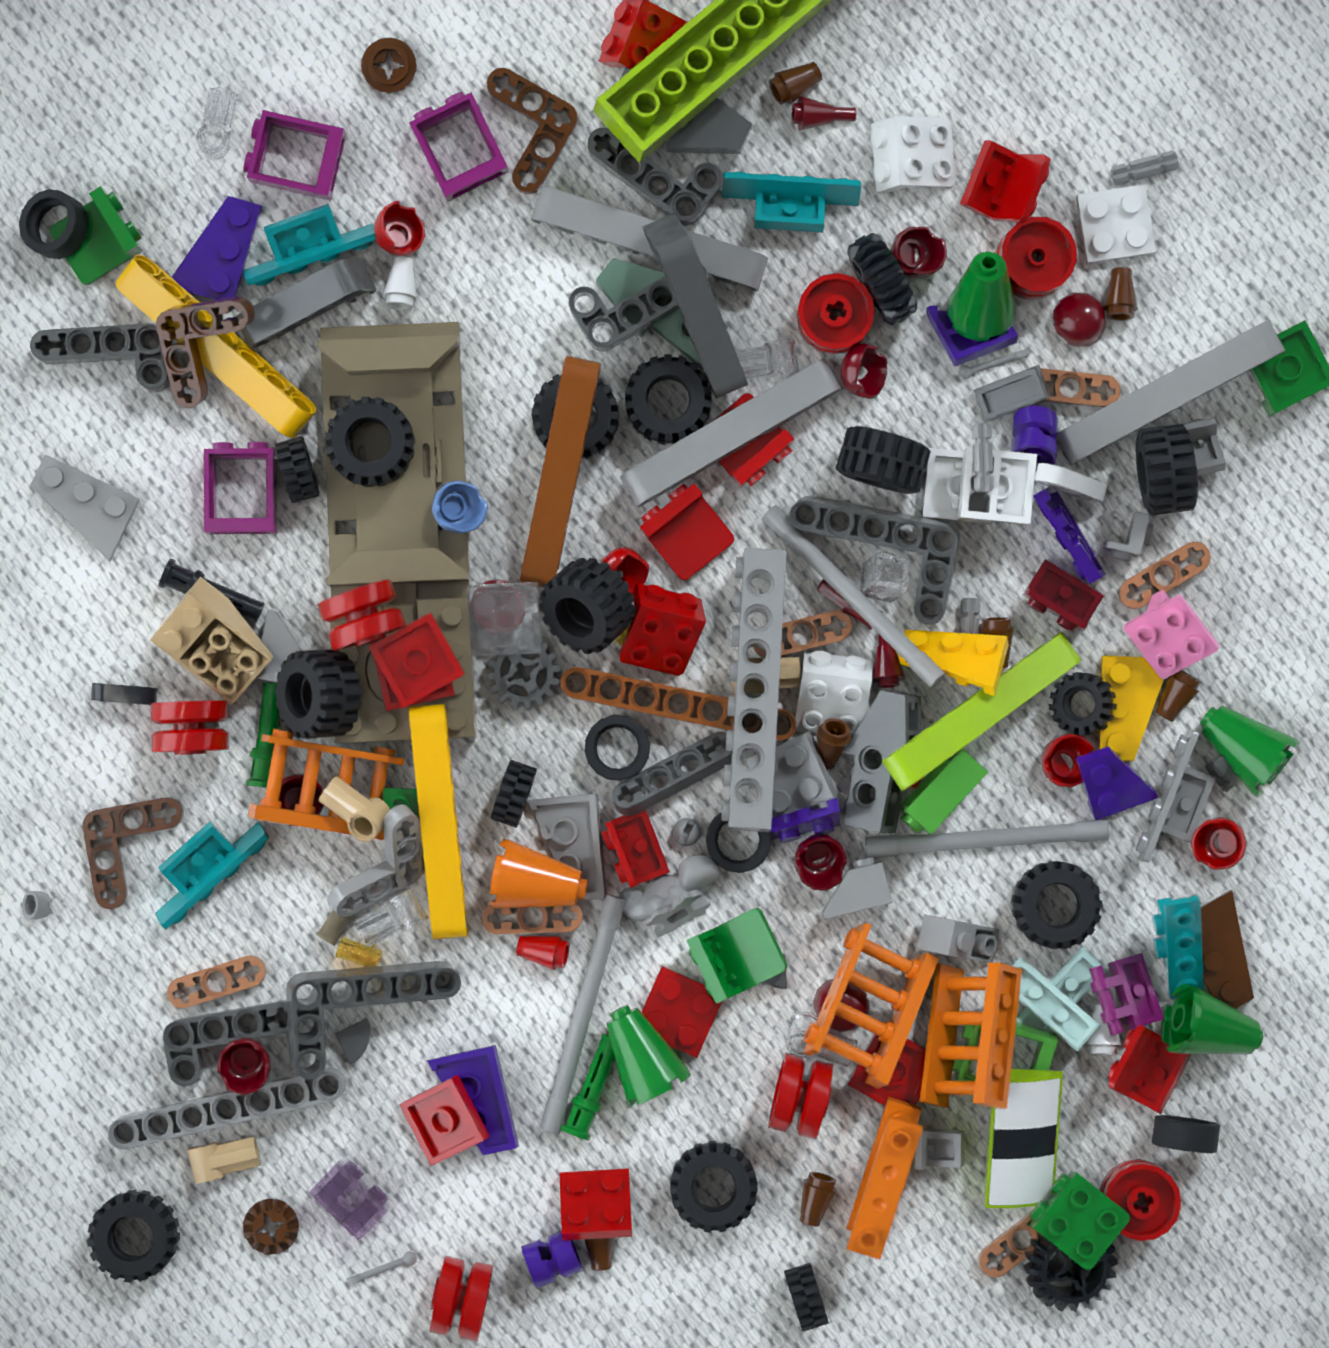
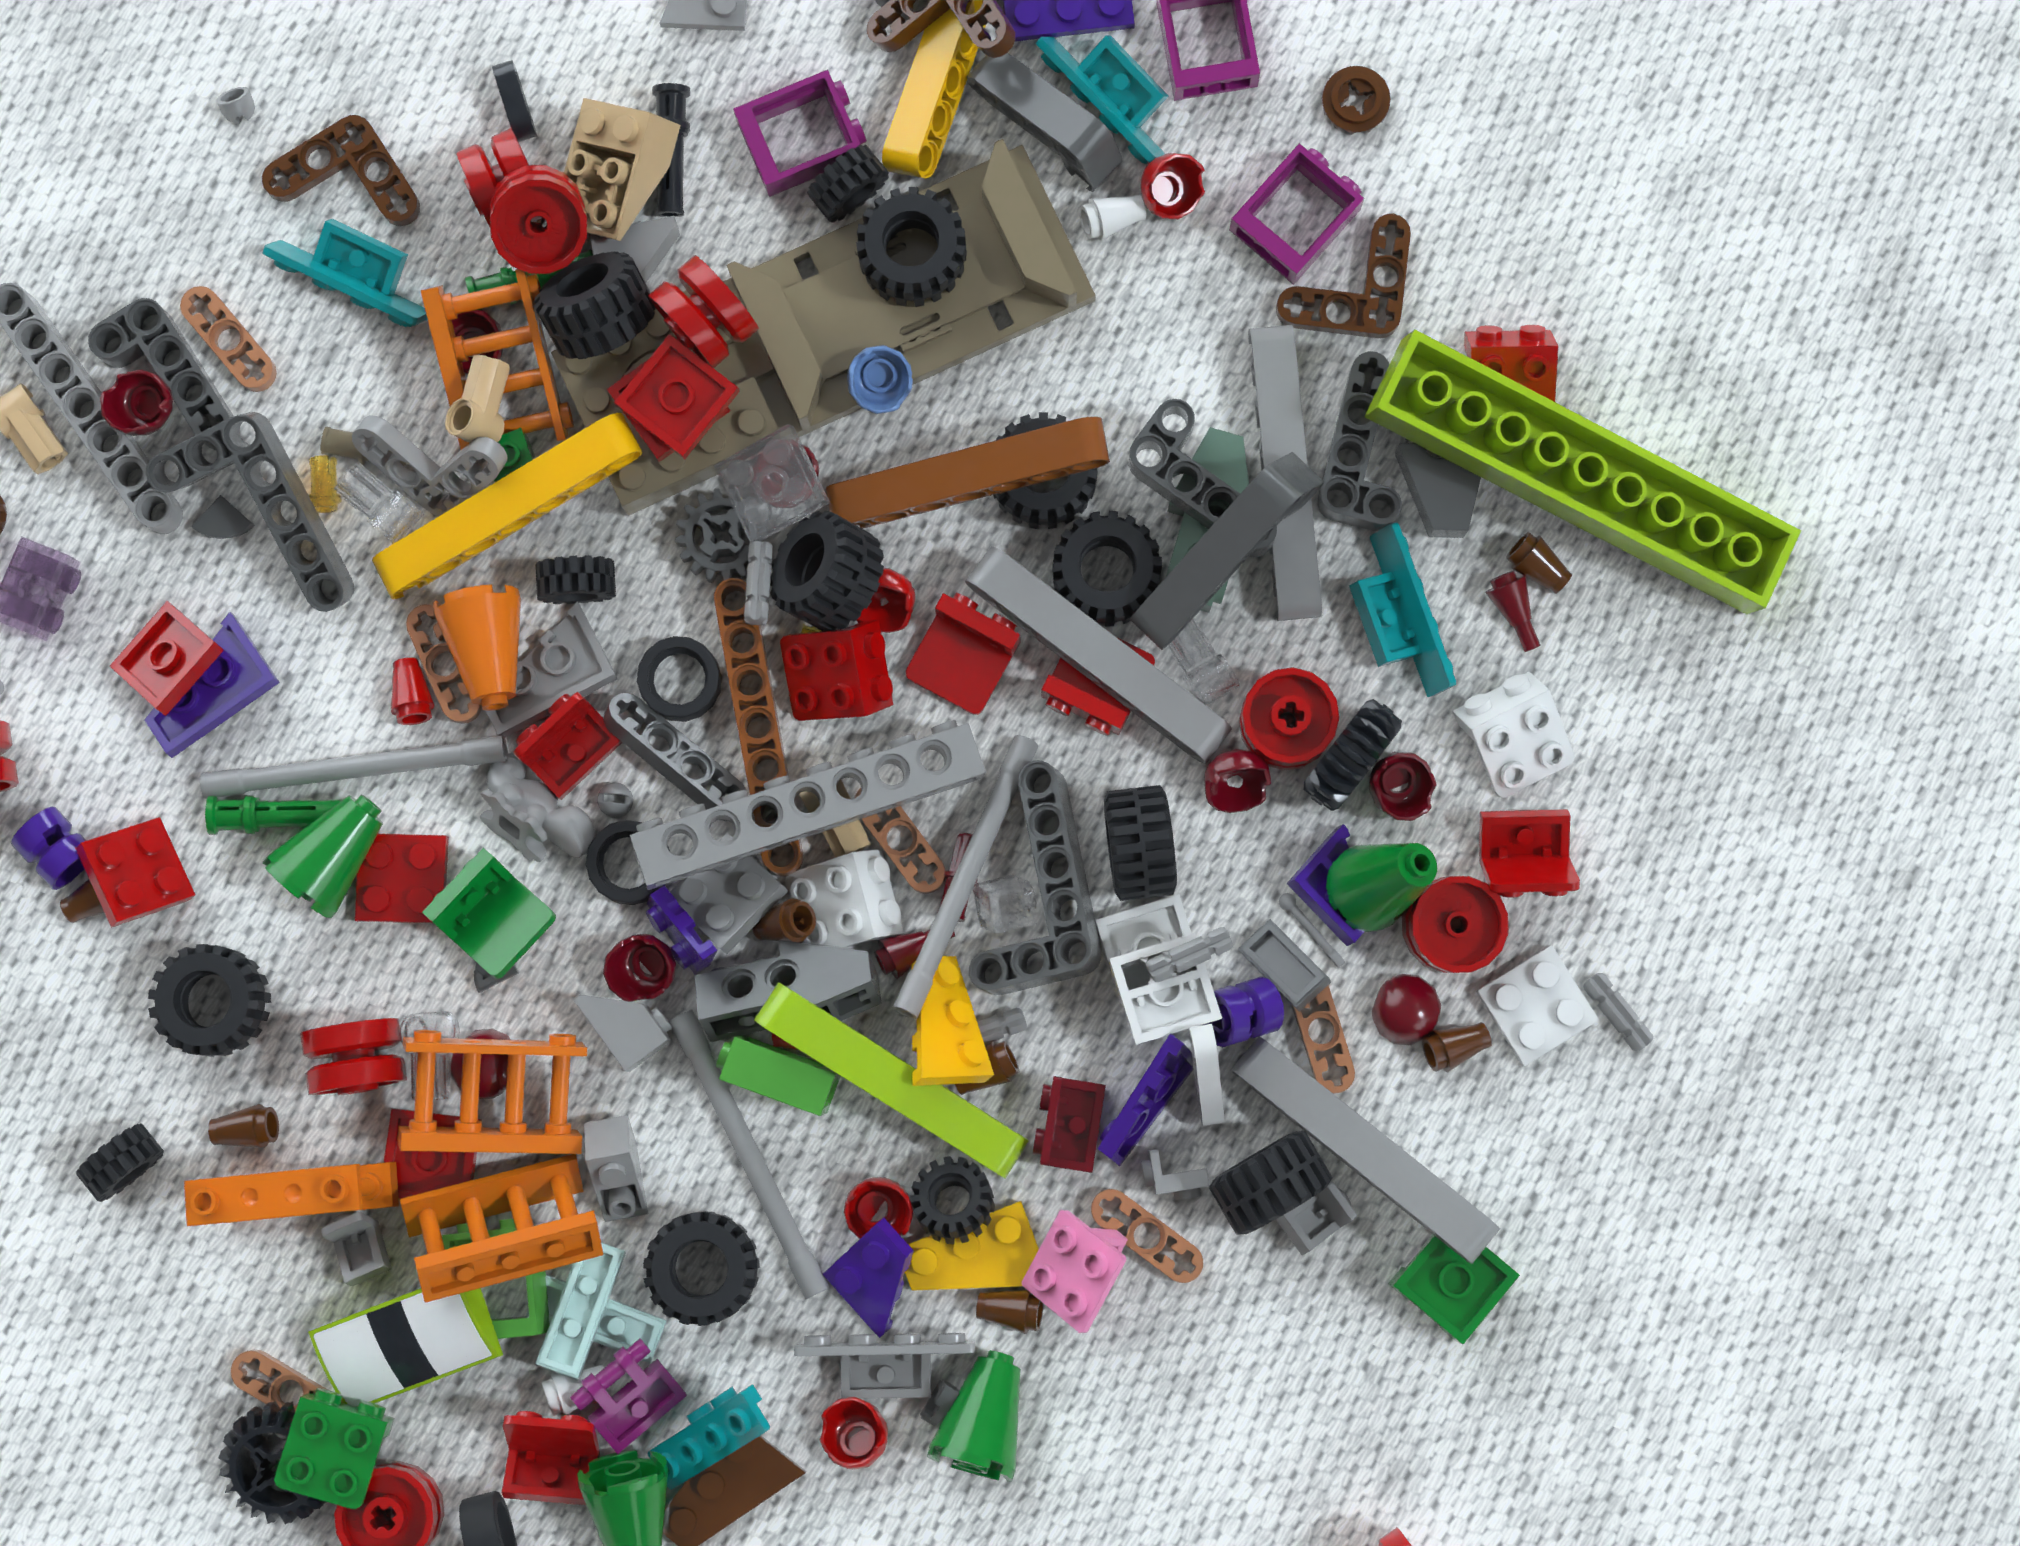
camera: 70 degrees right, 5 degrees down
(237, 709) = (563, 225): none -> red wheel
(574, 659) = (758, 583): none -> light grey axle

